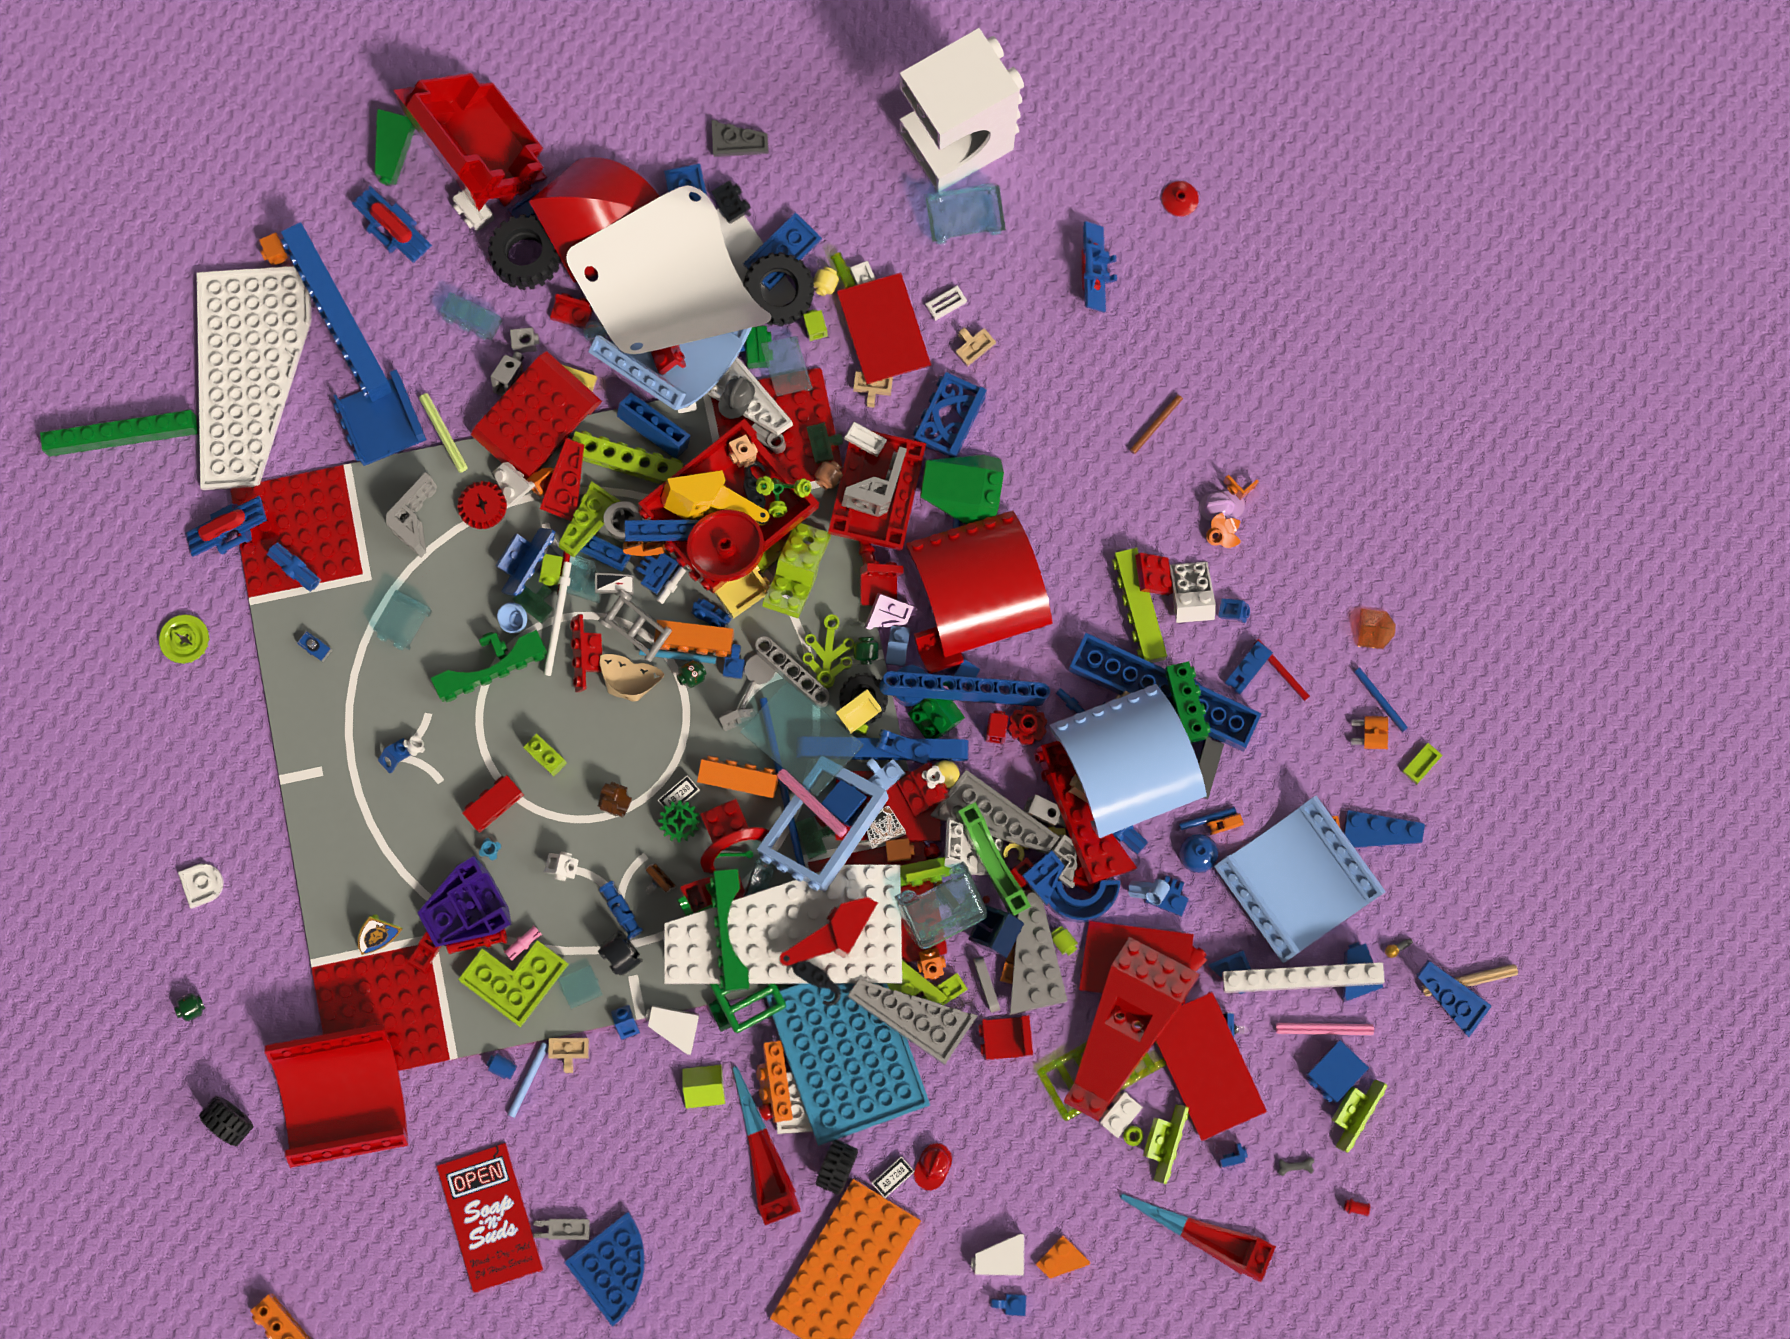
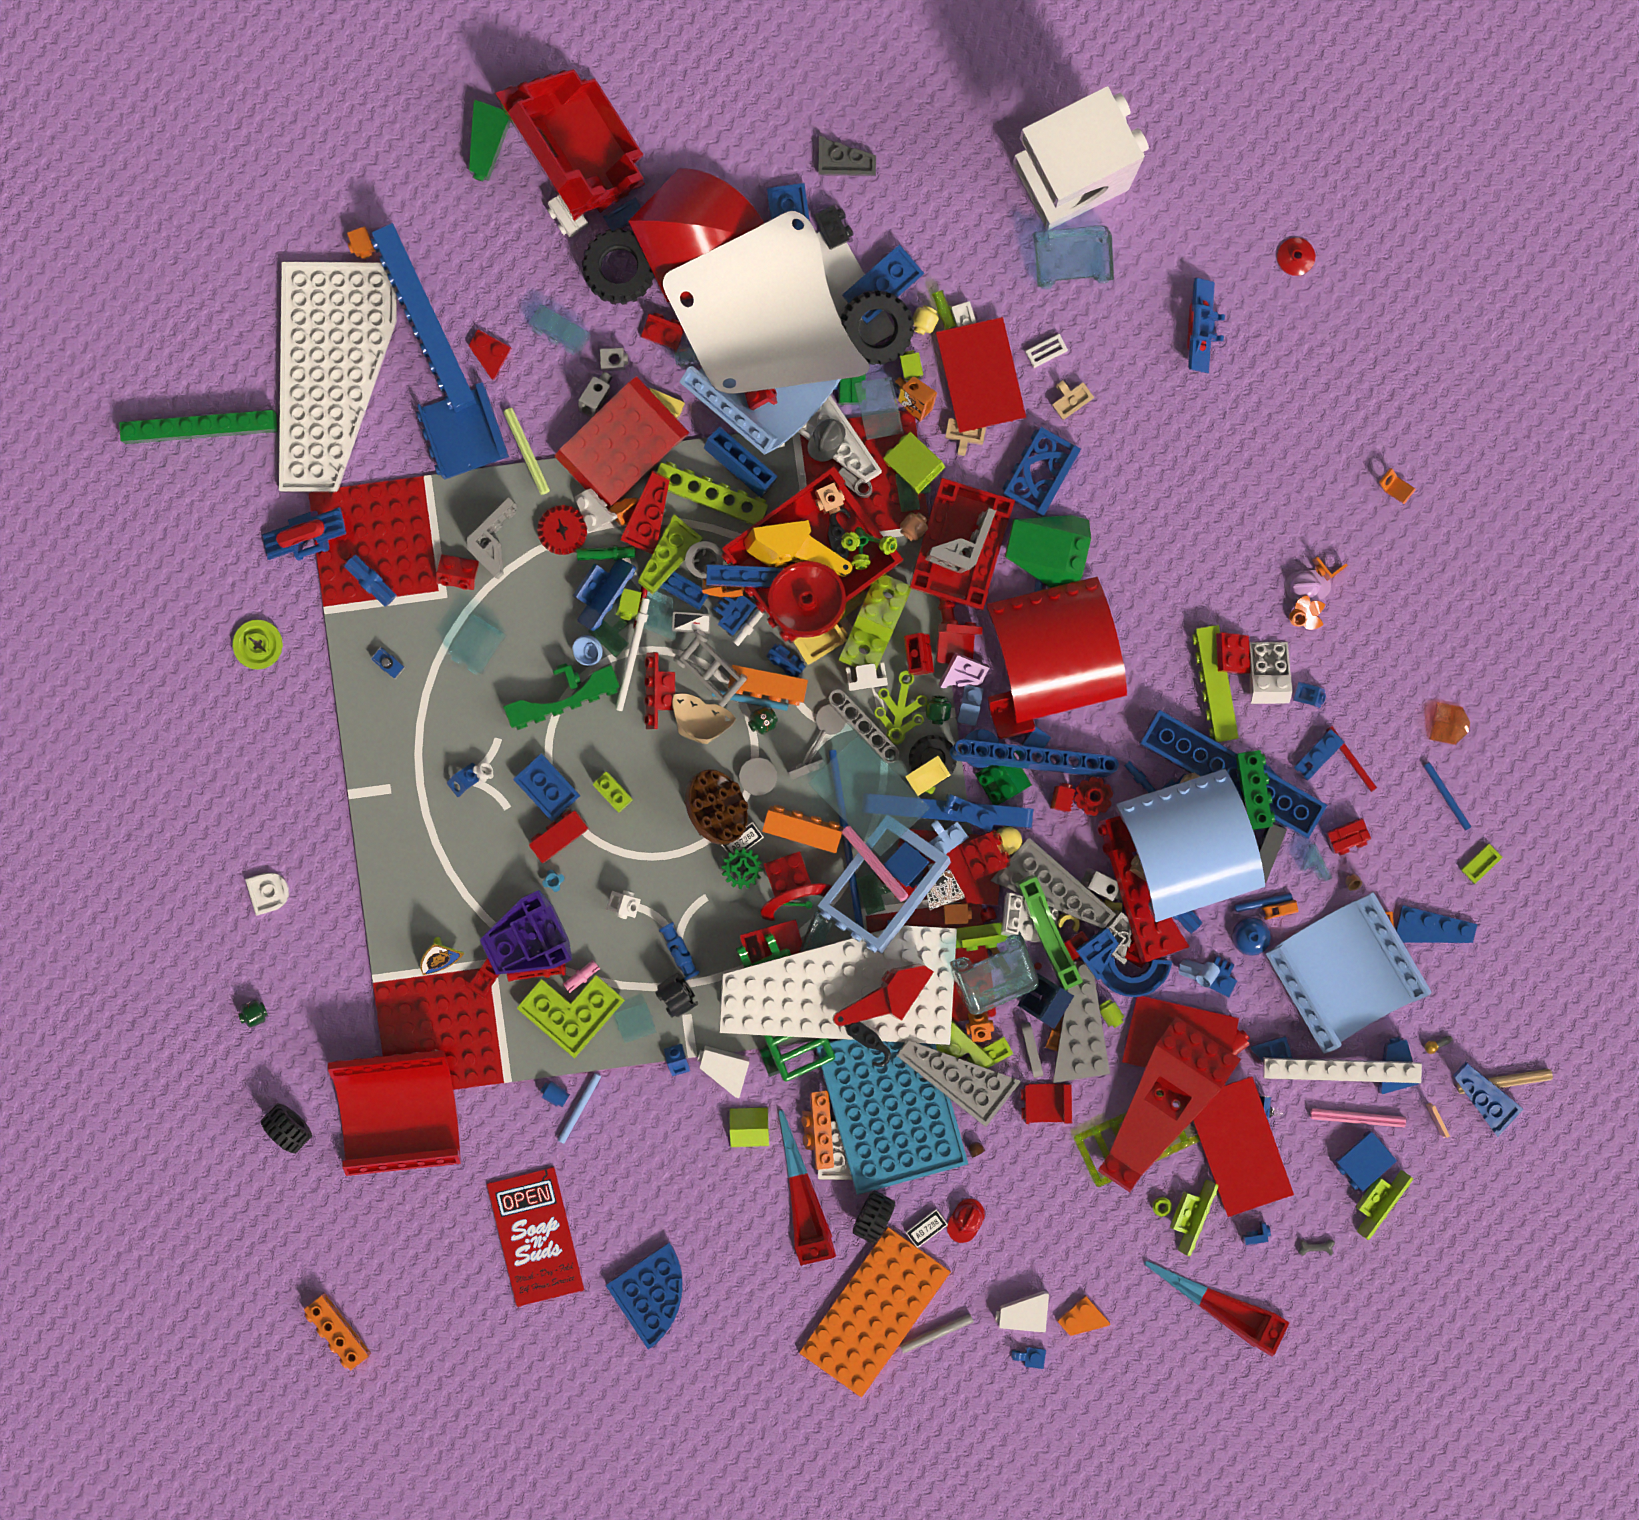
camera: 10 degrees right, 10 degrees up
(379, 553) = (457, 572): none -> red bracket
(395, 221) = (486, 222): blue piece -> none
(403, 343) = (489, 352): none -> red wing
(478, 756) = (546, 787): none -> blue plate
(526, 523) = (606, 553): none -> green pin
(564, 1229) = (606, 1254): light grey hinge -> none
(568, 1050) = (620, 1082): tan plate -> none
(614, 799) = (679, 841): reddish brown hair -> none
(648, 760) = (716, 807): none -> reddish brown bracket
(659, 879) = (718, 923): reddish brown piece -> none
(690, 730) = (758, 776): none -> light grey tile
(734, 666) = (805, 714): blue plate -> none
(734, 972) = (785, 946): green arch -> none
(766, 1111) = (808, 1157): red hinge -> none
(791, 621) = (866, 677): none -> white panel
(822, 353) = (915, 397): none -> orange torso
(824, 413) = (914, 462): none -> lime panel
(842, 596) = (918, 654): none -> red brick
(865, 439) = (954, 492): white tile -> none
(911, 1287) = (936, 1333): none -> light grey piece
(927, 775) = (995, 852): white plate -> none
(937, 1091) = (976, 1149): none -> reddish brown hinge
(1120, 1114) = (1151, 1185): white bracket -> none
(1154, 426) = (1249, 495): dark orange bar -> none
(1254, 769) = (1313, 858): none -> clear light blue slope
(1286, 745) = (1347, 836): none -> red brick
(1298, 405) = (1396, 487): none -> orange bracket
(1299, 791) = (1349, 882): none -> medium nougat hinge
(1356, 1207) = (1371, 1291): red pin -> none
(1375, 732) = (1438, 829): orange piece -> none
(1405, 1023) = (1437, 1120): none -> piece

